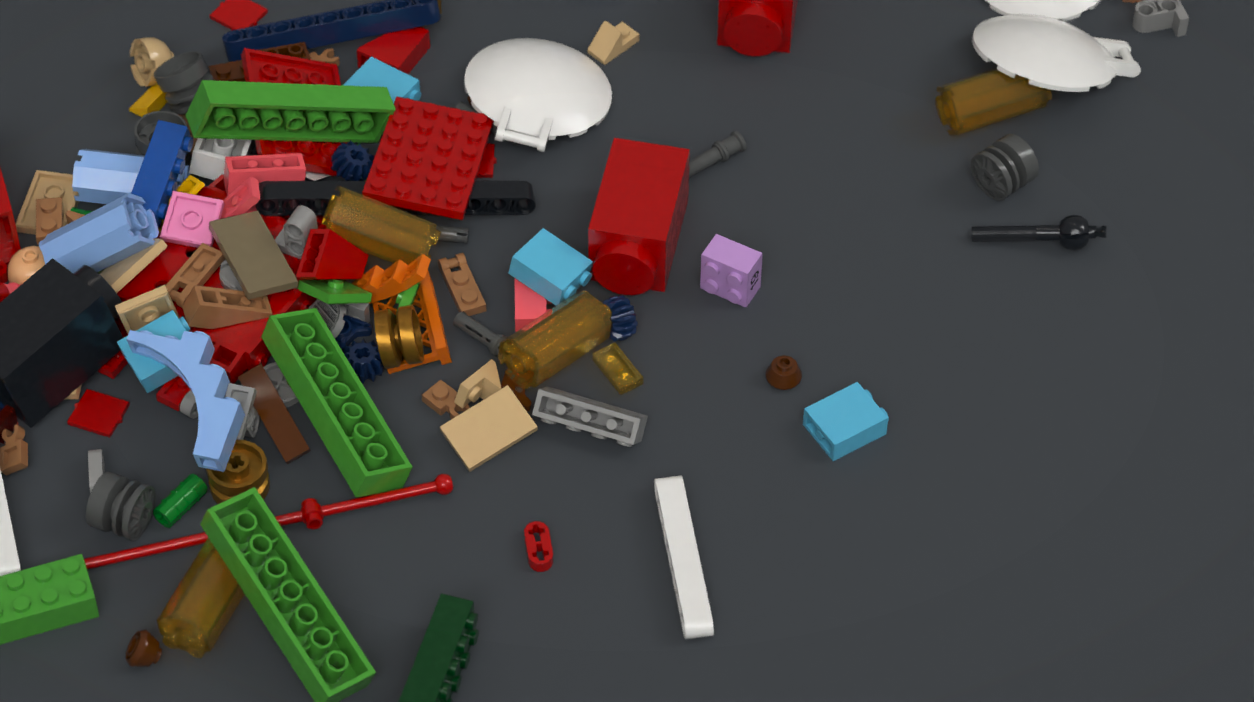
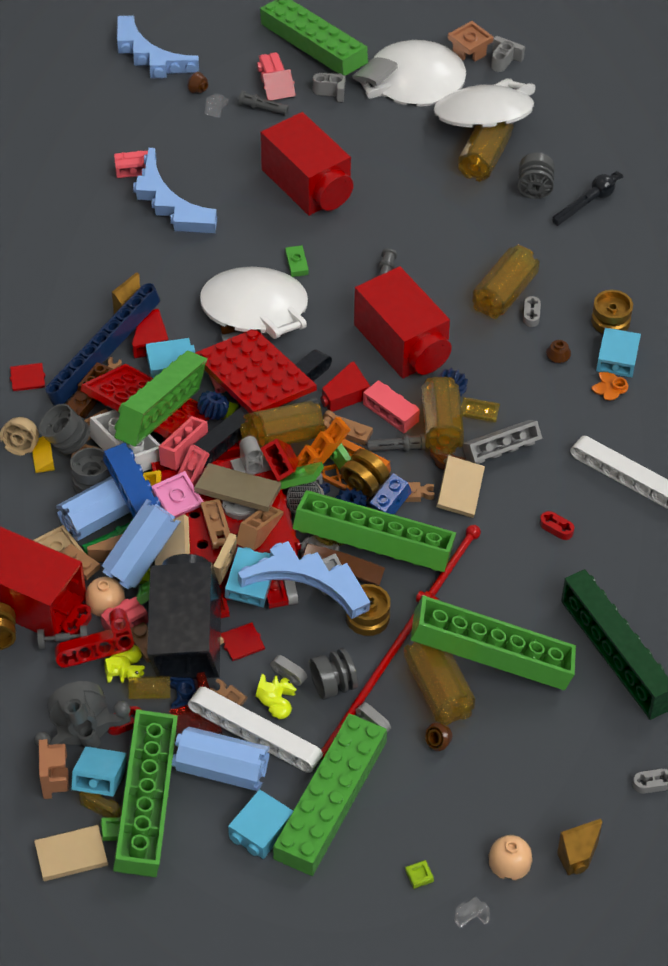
camera: 45 degrees left, 0 degrees up
(51, 481) = (271, 696): none -> neon yellow animal
(108, 582) = (368, 713): none -> light grey beam
(180, 500) = (352, 644): green axle -> none
(402, 383) = (391, 495): none -> blue brick
(480, 384) = (430, 467): tan slope -> none
(500, 241) = (344, 388): none -> red slope
(551, 267) = (393, 380): medium azure brick -> none
(612, 41) = (256, 251): tan slope -> none
(639, 82) = (296, 261): none -> bright green plate
(731, 270) = (476, 318): lavender brick -> none
(787, 451) = (610, 386): none -> orange plate
(815, 255) = (505, 281): none -> clear yellow brick
(815, 312) = (531, 311): none -> light grey beam
(891, 372) = (612, 310): none -> pearl gold wheel

